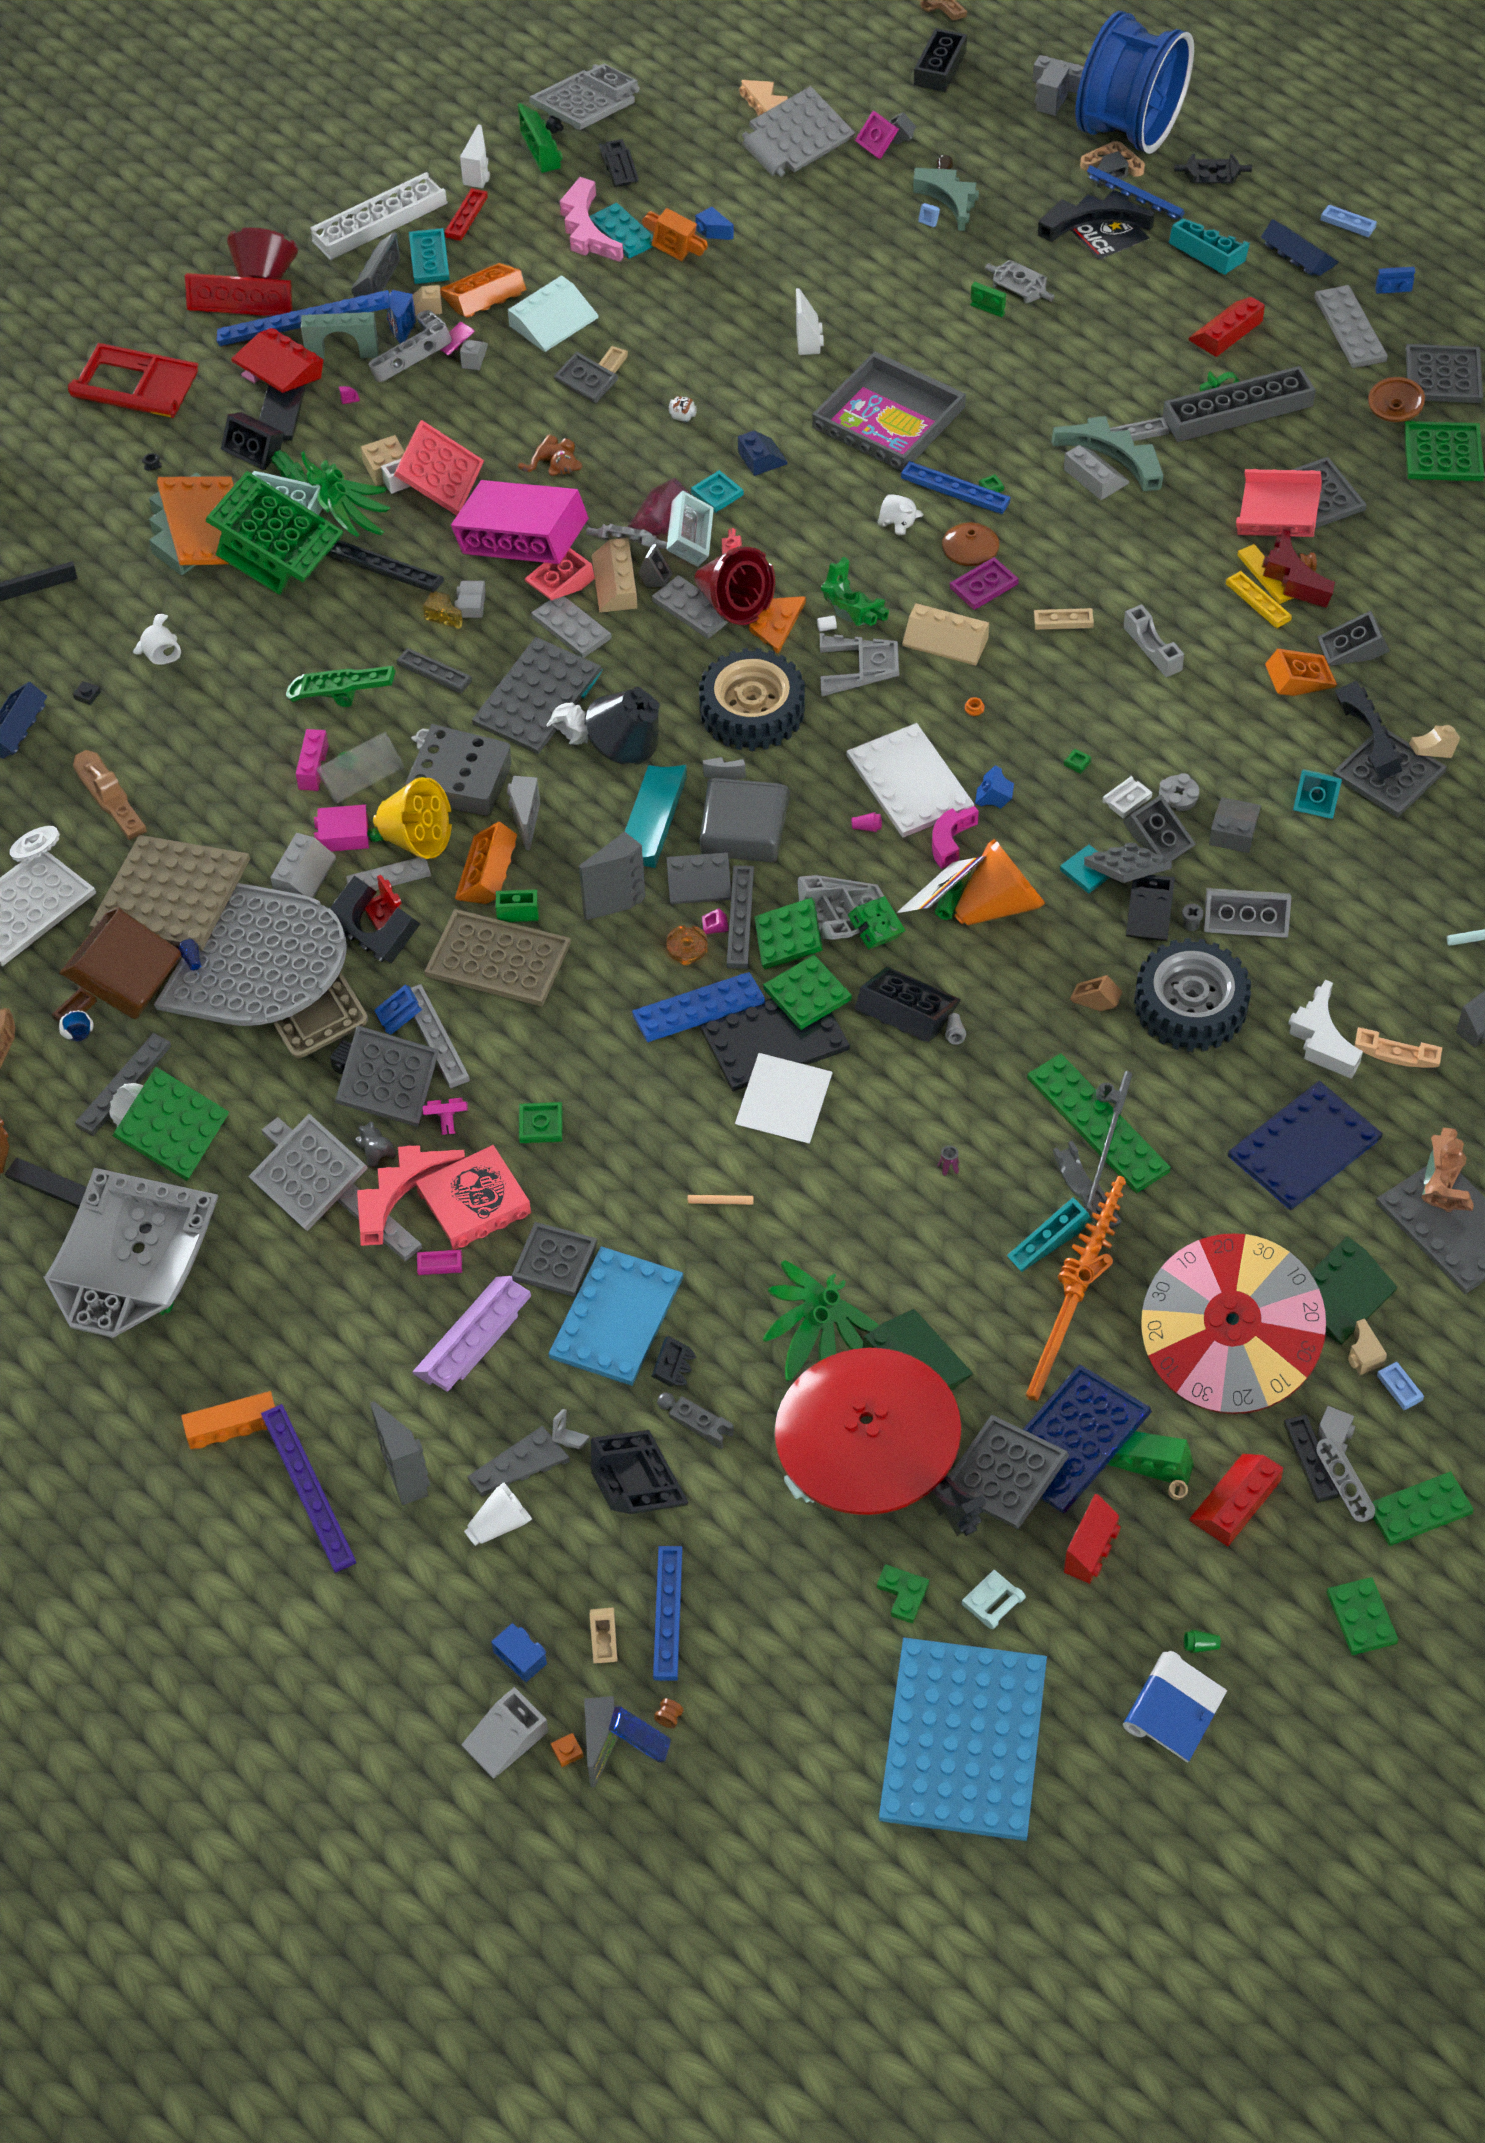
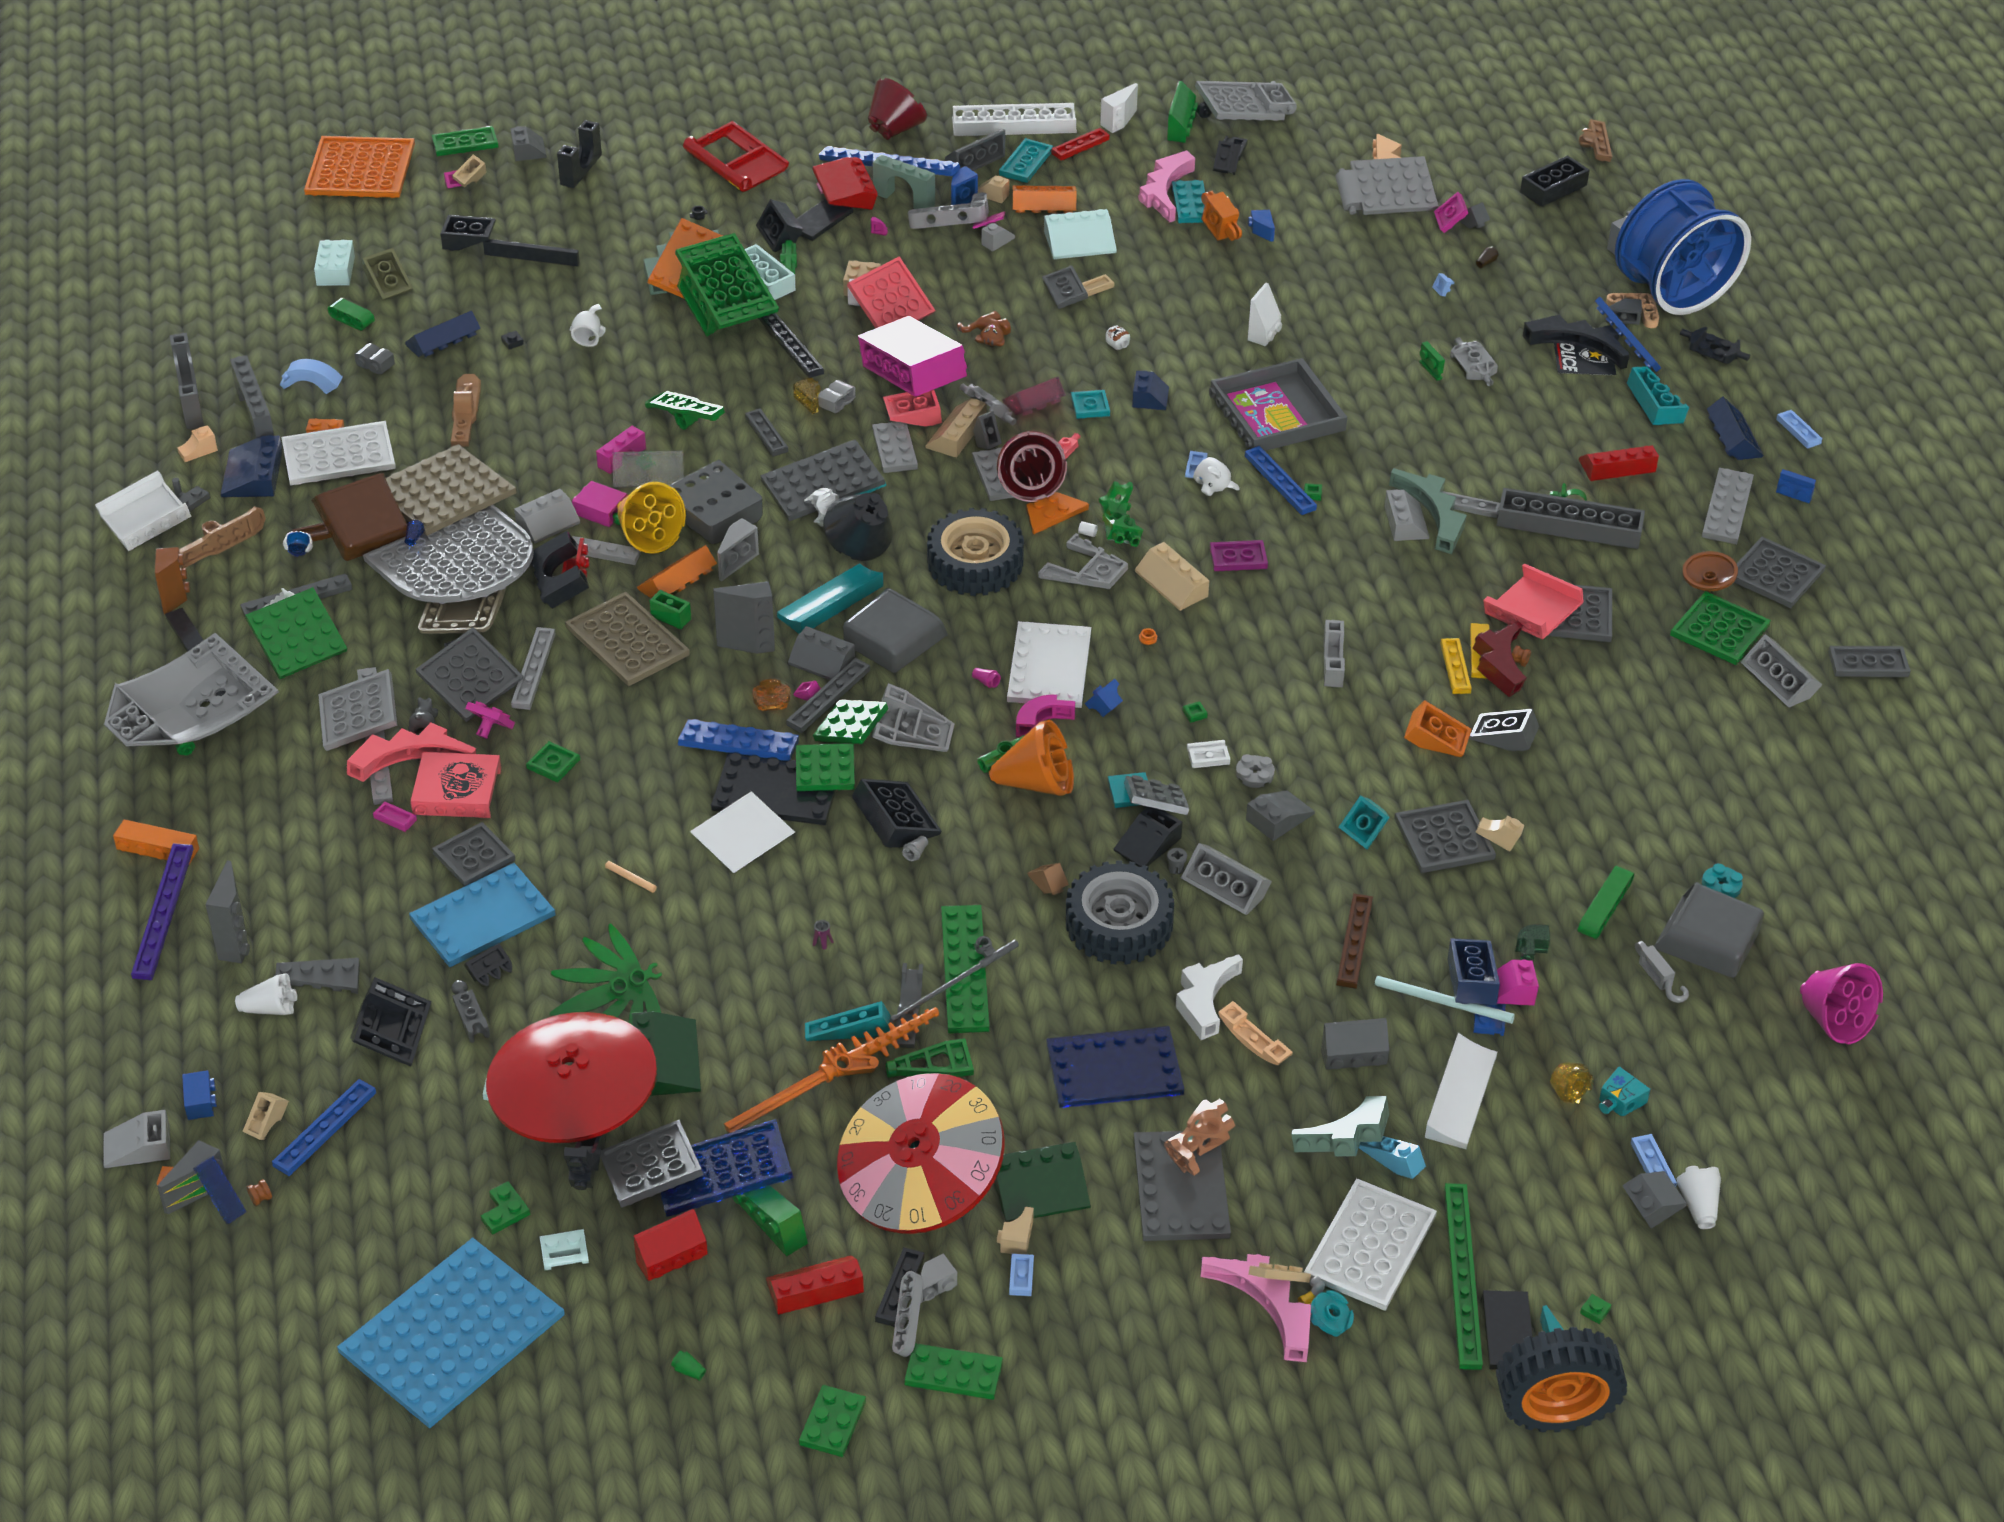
camera: 30 degrees right, 10 degrees down
(34, 843) = (382, 417): white gear -> none
(238, 294) = (858, 128): red plate -> none
(341, 494) = (802, 281): green plant -> none
(398, 1009) = (521, 637): blue plate -> none
(473, 1333) = (371, 875): lavender slope -> none
(565, 1436) = (368, 971): light grey bracket -> none
(690, 528) = (1042, 414): light aqua piece -> none
(718, 769) = (911, 591): light grey slope -> none
(865, 508) = (1194, 460): none -> light blue slope
(876, 922) = (921, 744): green piece -> none
(941, 884) = (991, 739): white sticker -> none
(945, 187) = (1476, 273): sand green arch -> none
(970, 544) = (1256, 524): dark orange dish -> none
(1063, 618) = (1278, 607): tan plate -> none
(1159, 829) = (1210, 787): dark grey slope -> none
(1167, 1210) = (956, 1051): none -> green plate
(1175, 1706) = (625, 1399): blue door -> none
(1182, 1490) = (770, 1248): tan hinge -> none
(1354, 702) = (1442, 819): black arch -> none
(1398, 912) = (1354, 941): none -> reddish brown tile

